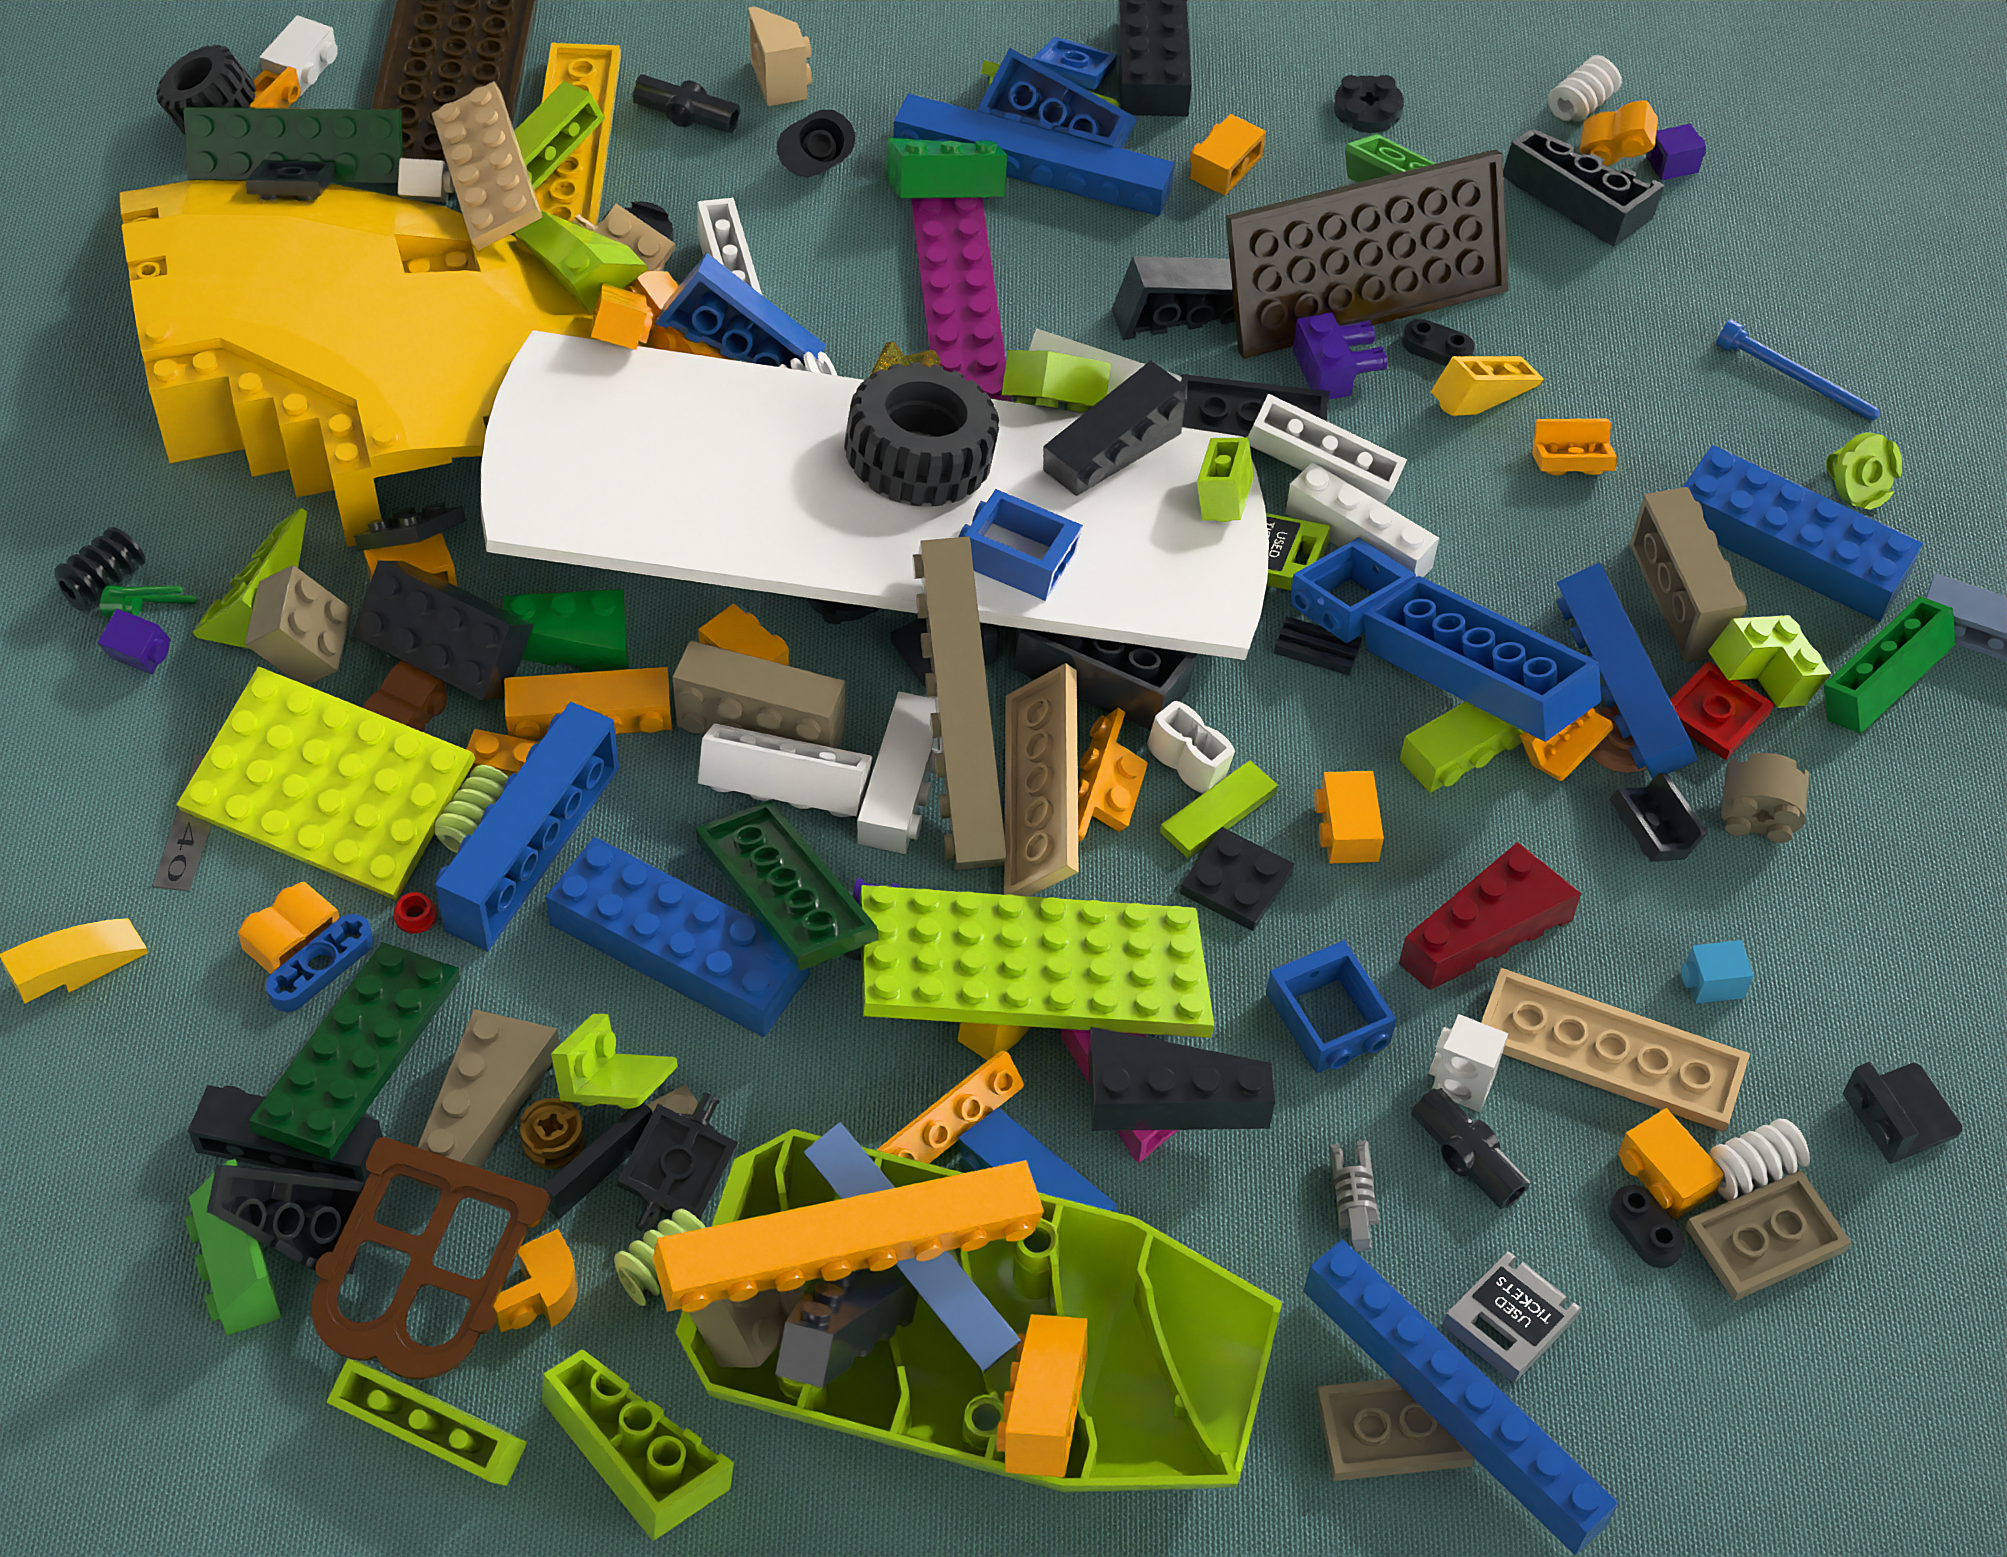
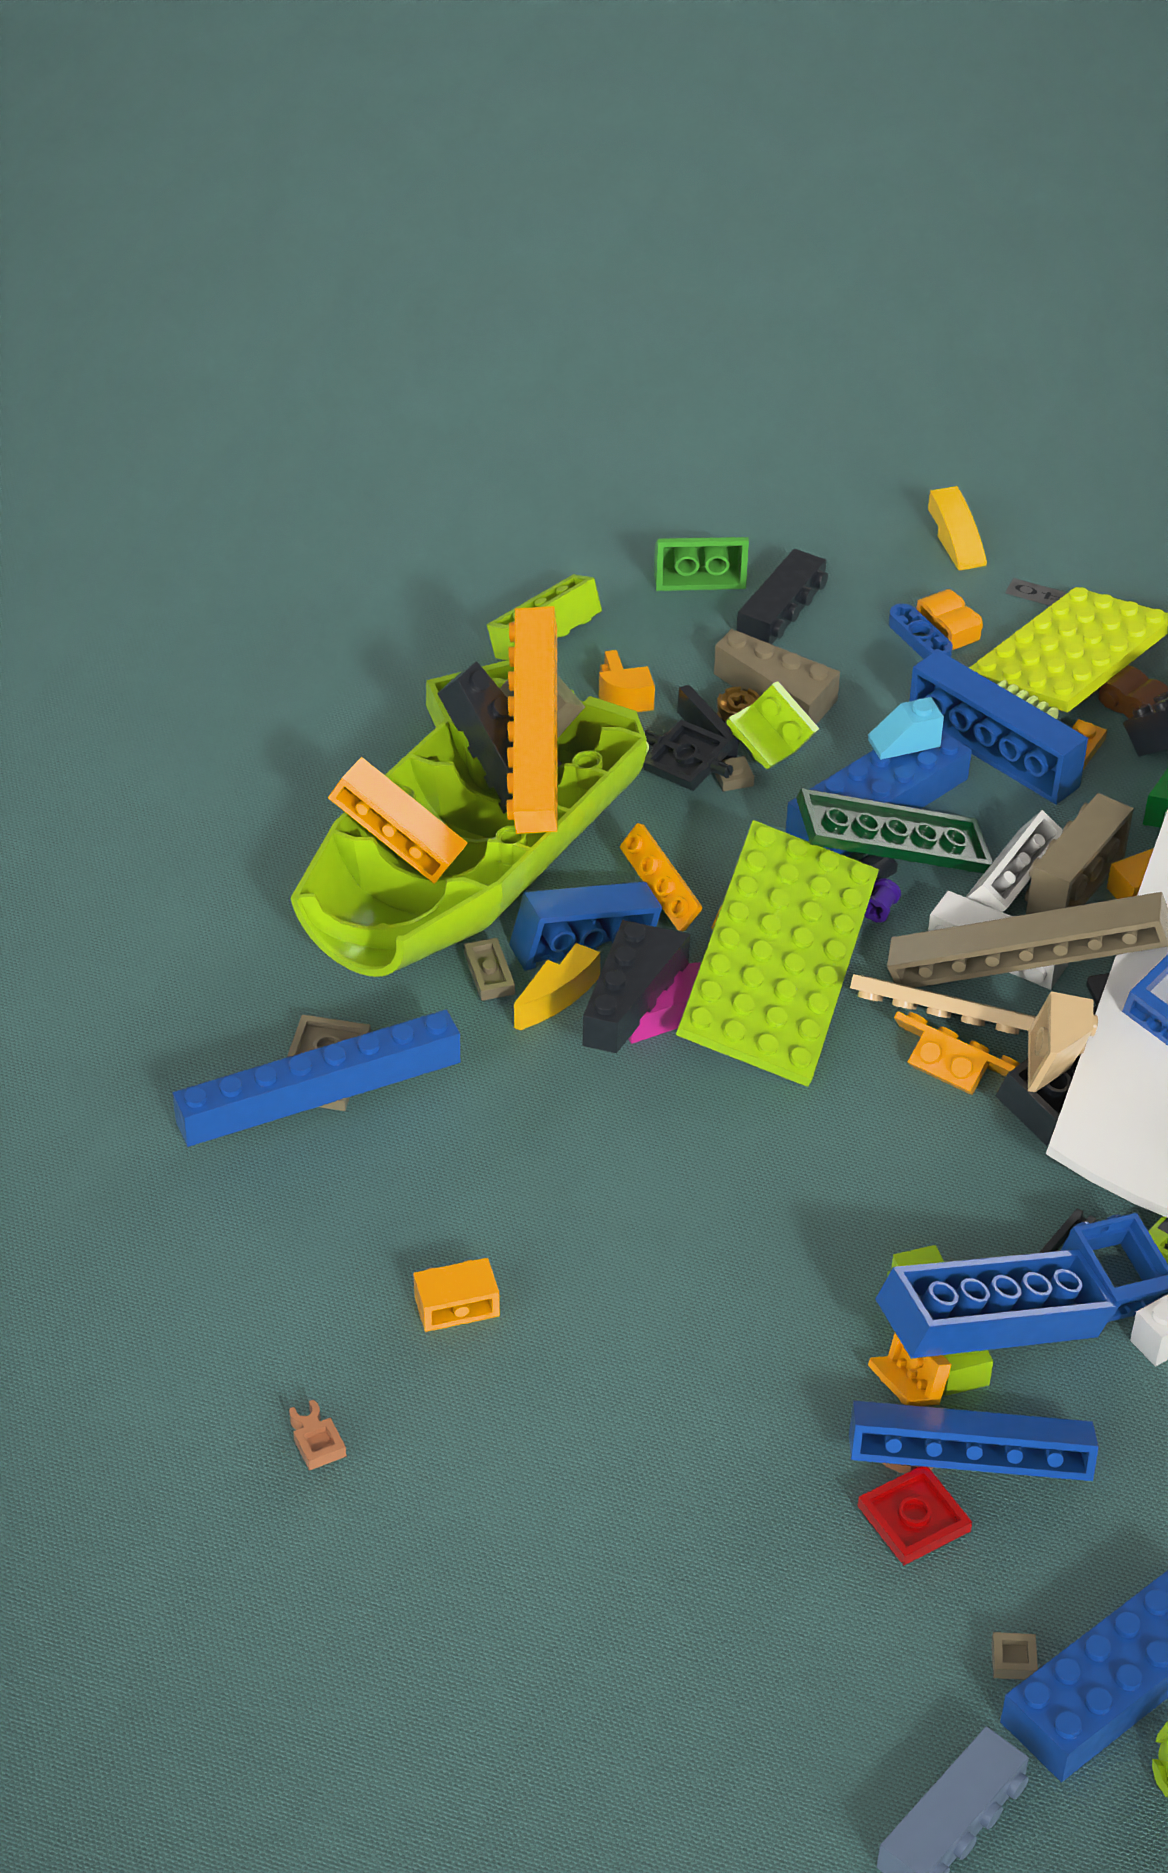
camera: 110 degrees right, 10 degrees down
(286, 1208) = (708, 570): black wedge -> none
(354, 1051) = (833, 627): dark green plate -> none
(388, 1335) = (613, 606): reddish brown window -> none
(610, 888) = (908, 729): none -> medium azure slope
(631, 697) = (1115, 767): light orange brick -> none
(937, 1280) = (495, 790): medium blue tile -> none
(1136, 636) = (1058, 1037): none -> tan slope
(1164, 1200) = (557, 986): none -> yellow slope
(1190, 747) = (966, 1104): white brick -> none
(1218, 807) = (910, 1127): lime tile -> none
(1237, 878) = (836, 1119): black plate -> none
(1318, 970) = (680, 1106): blue window -> none
(1350, 817) = (866, 1189): light orange brick -> none
(1355, 1194) = (515, 1096): light grey hinge -> none
(1467, 1061) = (591, 1180): white brick -> none
(1470, 1148) = (525, 1175): black piece -> none
(1494, 911) = (737, 1257): dark red wedge -> none
(1517, 1306) = (377, 1159): light grey container -> none
(1616, 1049) = (577, 1300): tan plate -> none
(1644, 1224) = (397, 1269): black plate -> none
(1659, 819) = (798, 1411): black bracket -> none
(1685, 571) = (1078, 1529): dark tan brick -> none
(1717, 972) = (623, 1397): dark azure brick -> none
(1760, 1157) = (432, 1346): white piece -> none
(1765, 796) = (789, 1490): dark tan brick -> none
(1767, 1235) = (367, 1338): dark tan plate -> none
(1774, 654) = (965, 1570): lime brick -> none
(1823, 612) = (1013, 1655): none -> dark tan plate
(1889, 664) = (922, 1670): green brick -> none
(1901, 1110) = (437, 1471): black bracket -> none
(1917, 1238) = (316, 1439): none -> nougat plate

